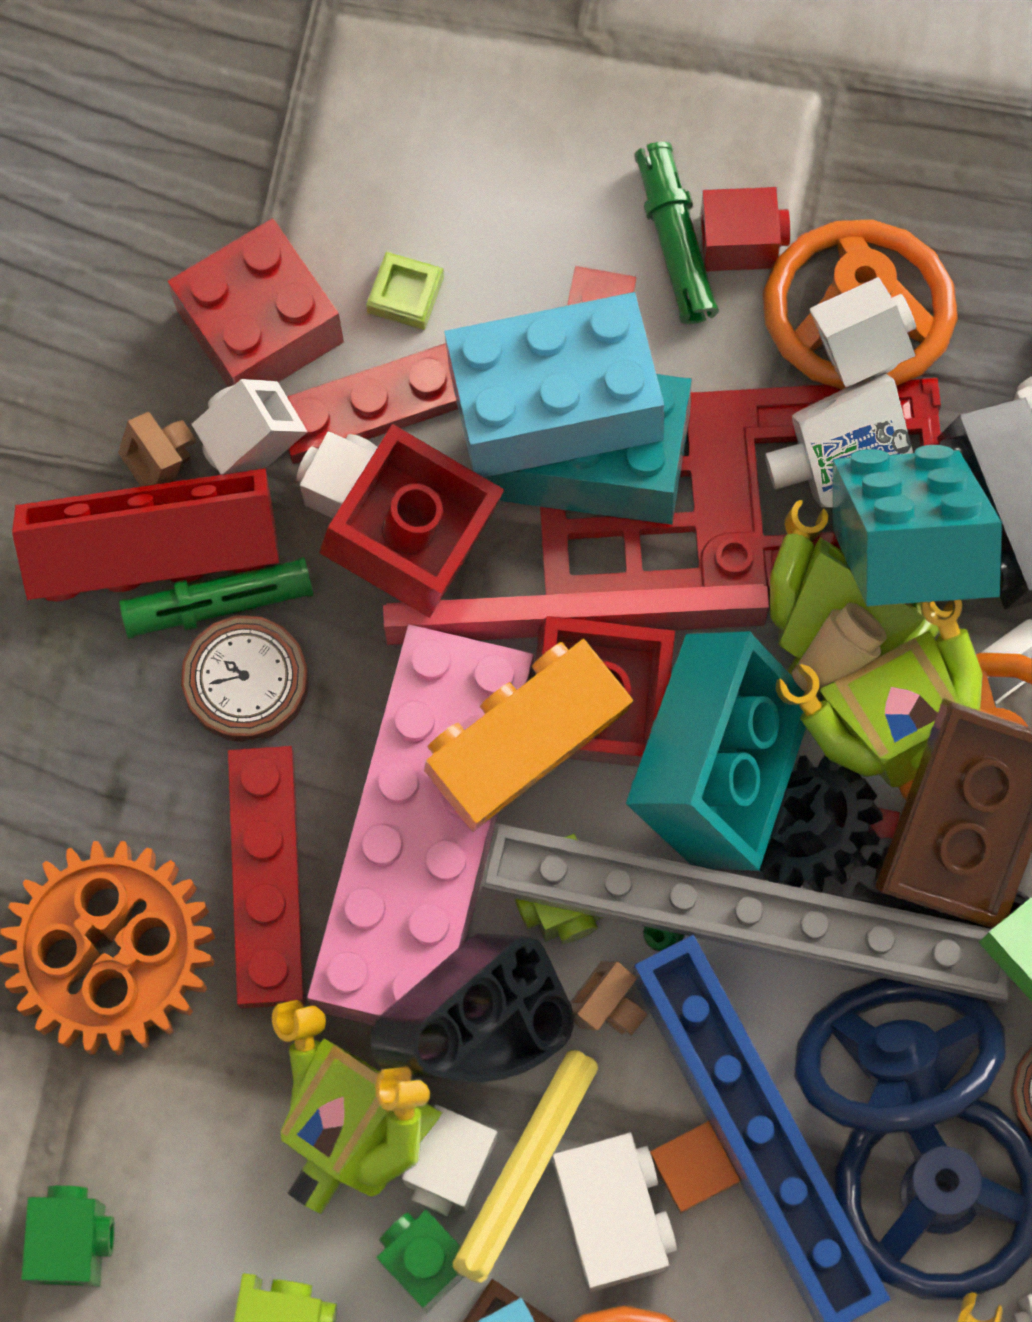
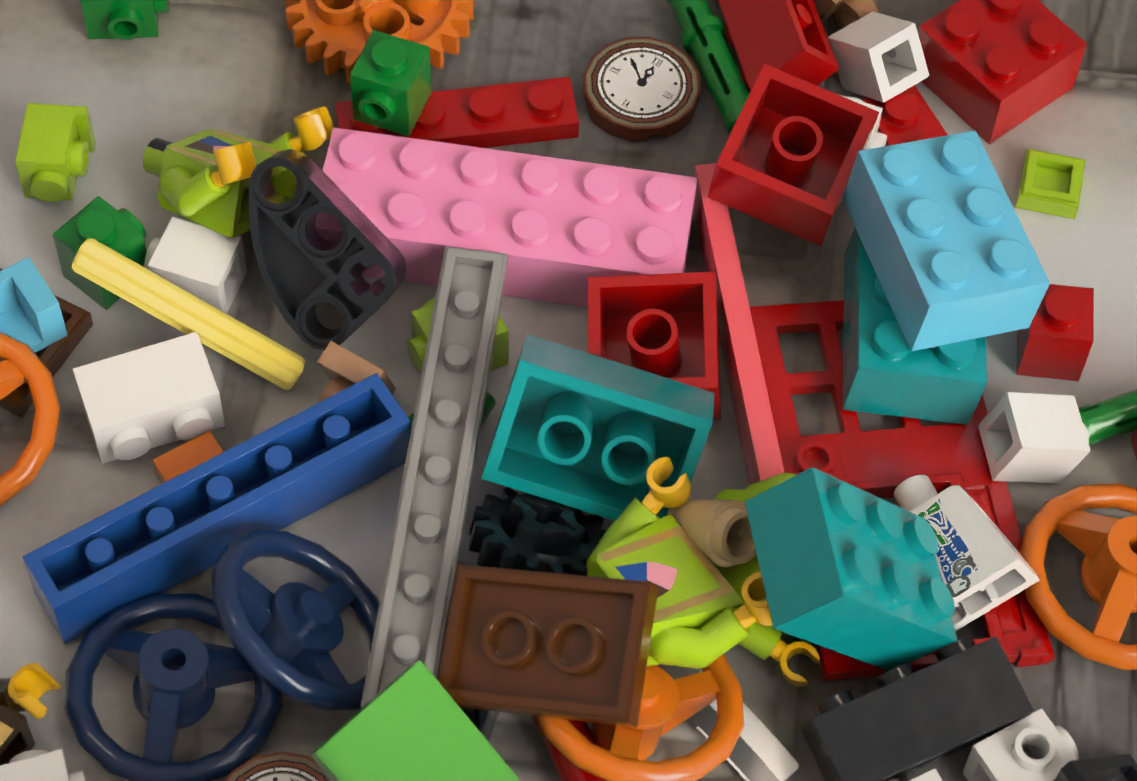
camera: 80 degrees right, 15 degrees down
(255, 932) = (391, 83): none -> green brick
(525, 732) = (589, 252): light orange brick -> none
(720, 353) = (1034, 437): none -> white brick
(865, 331) = (1071, 539): white brick -> none

